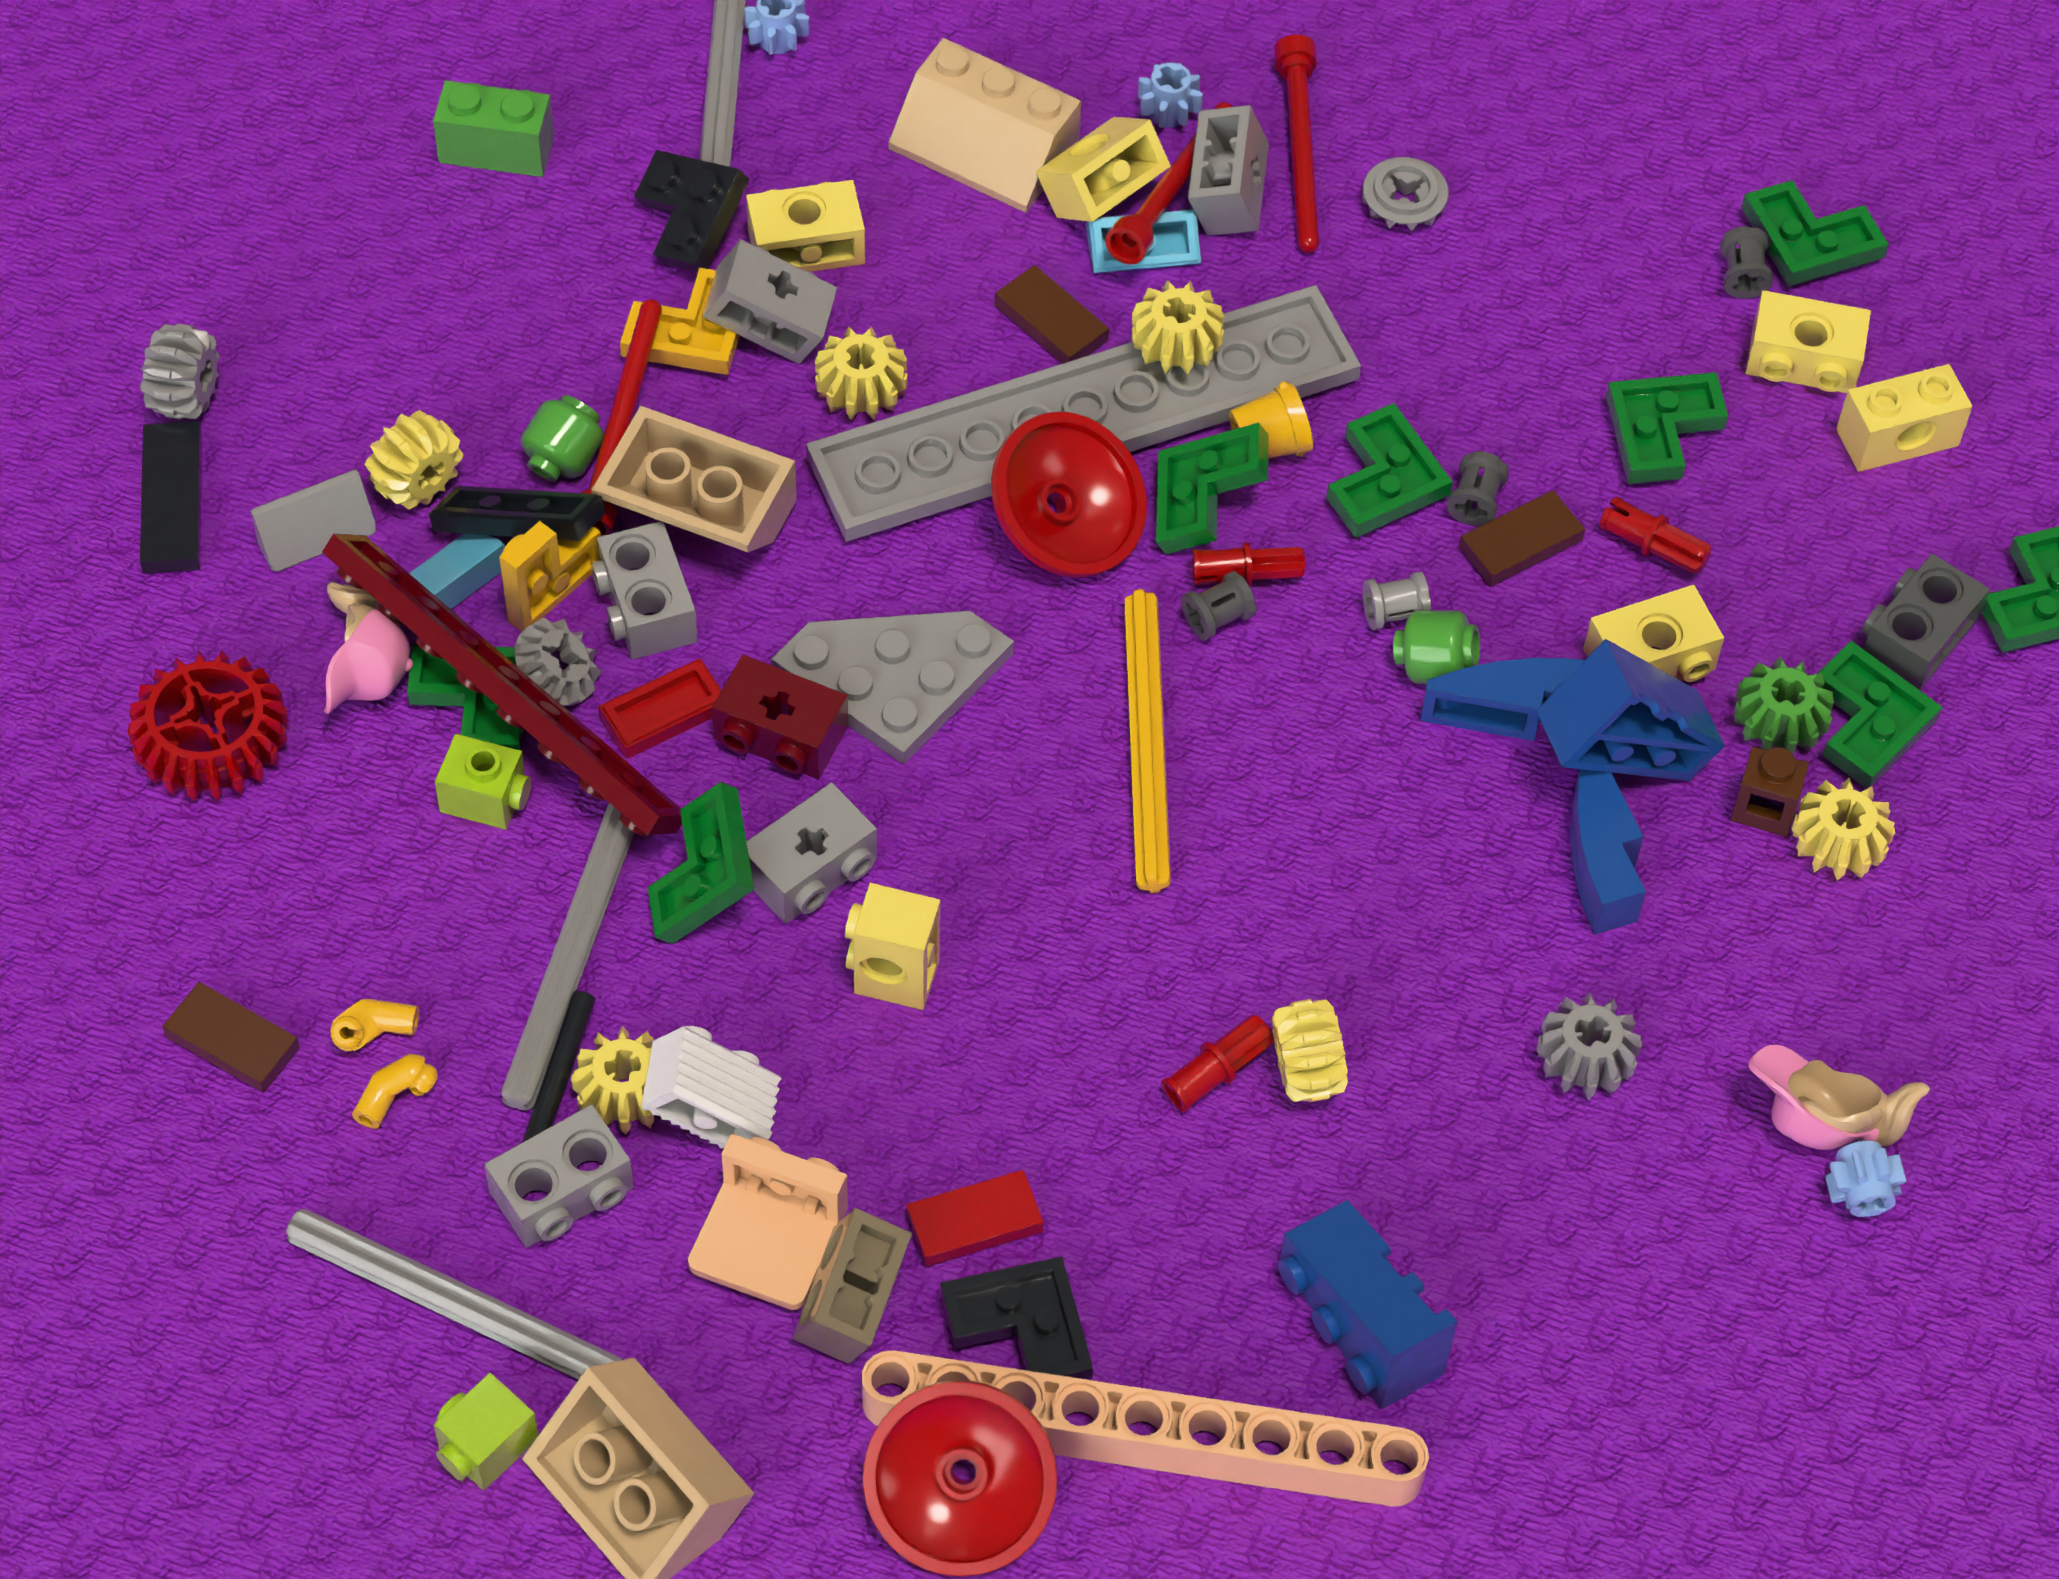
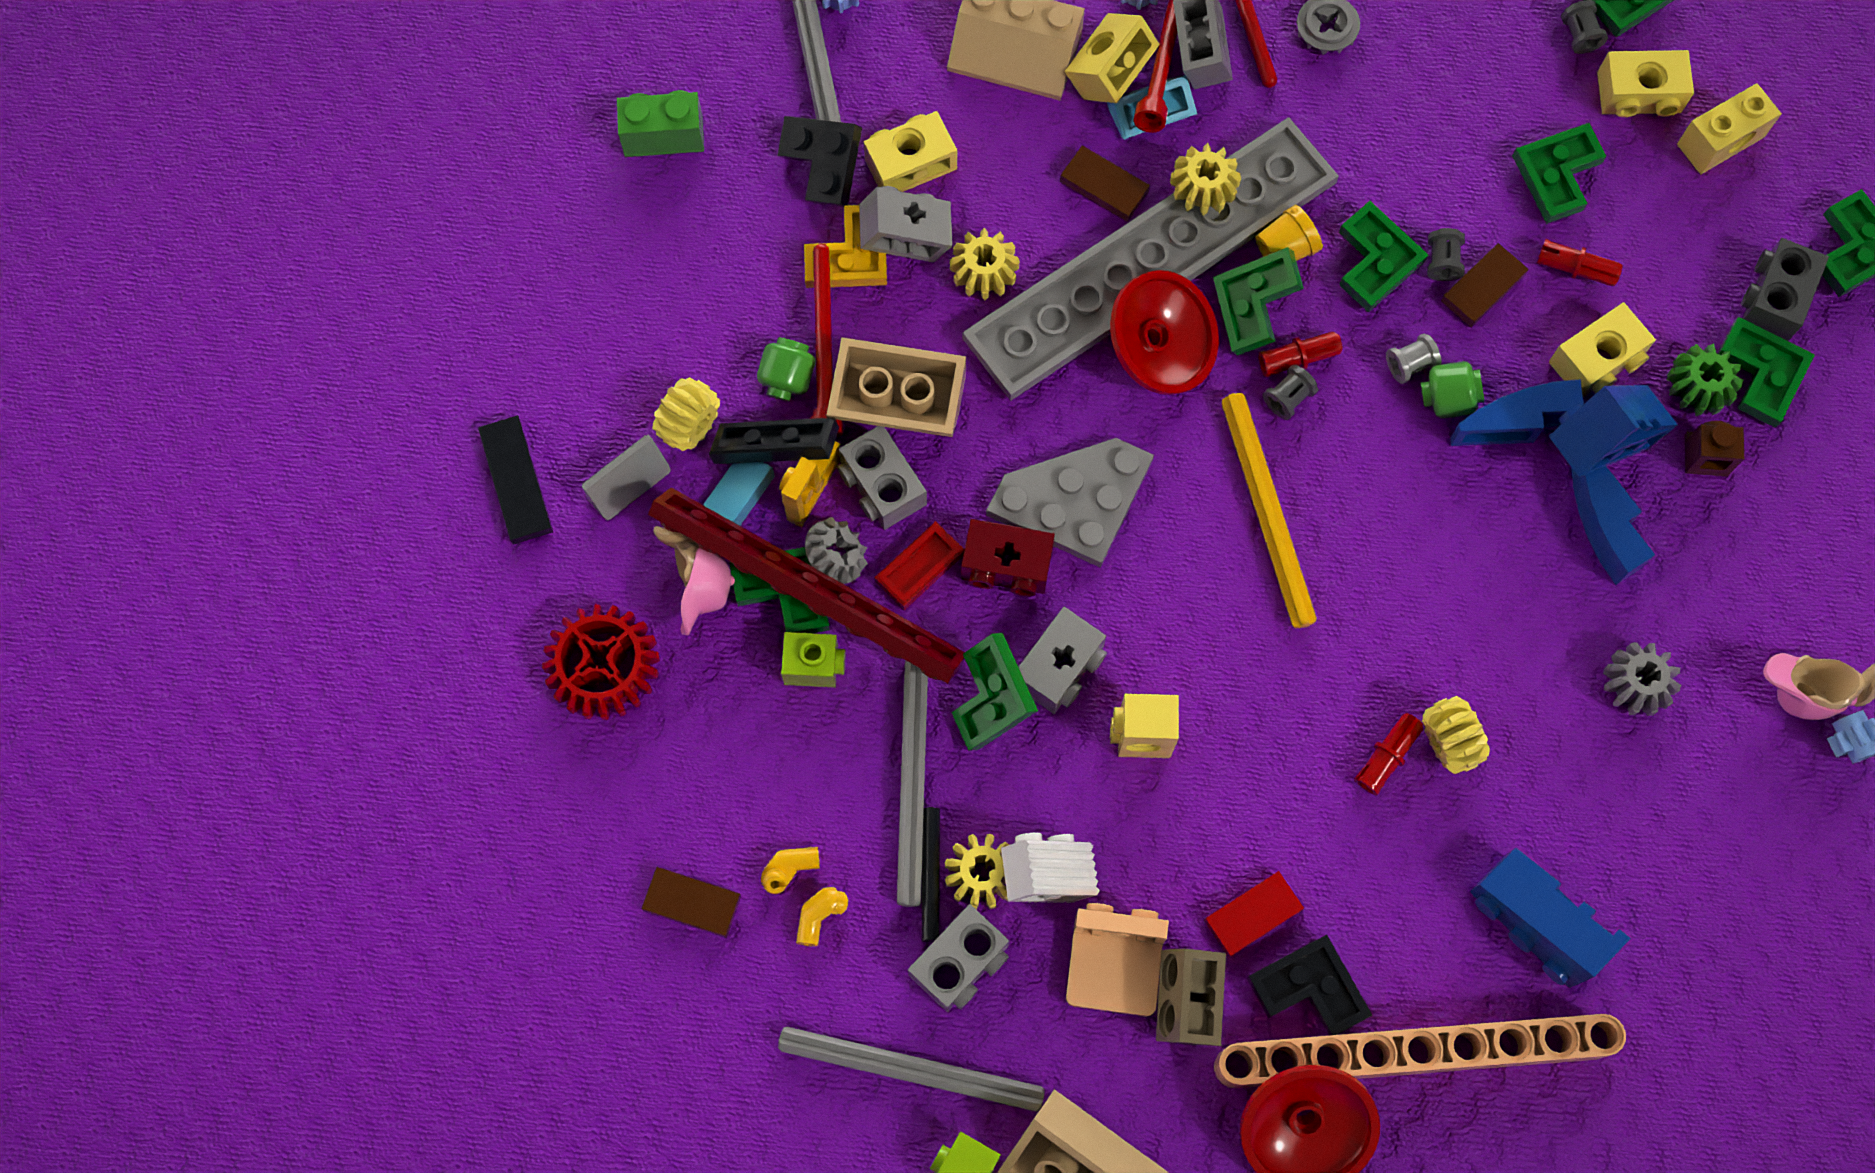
camera: 10 degrees left, 15 degrees up
(179, 371) = (493, 382): light grey gear -> none
(1843, 829) = (1782, 456): light yellow gear -> none

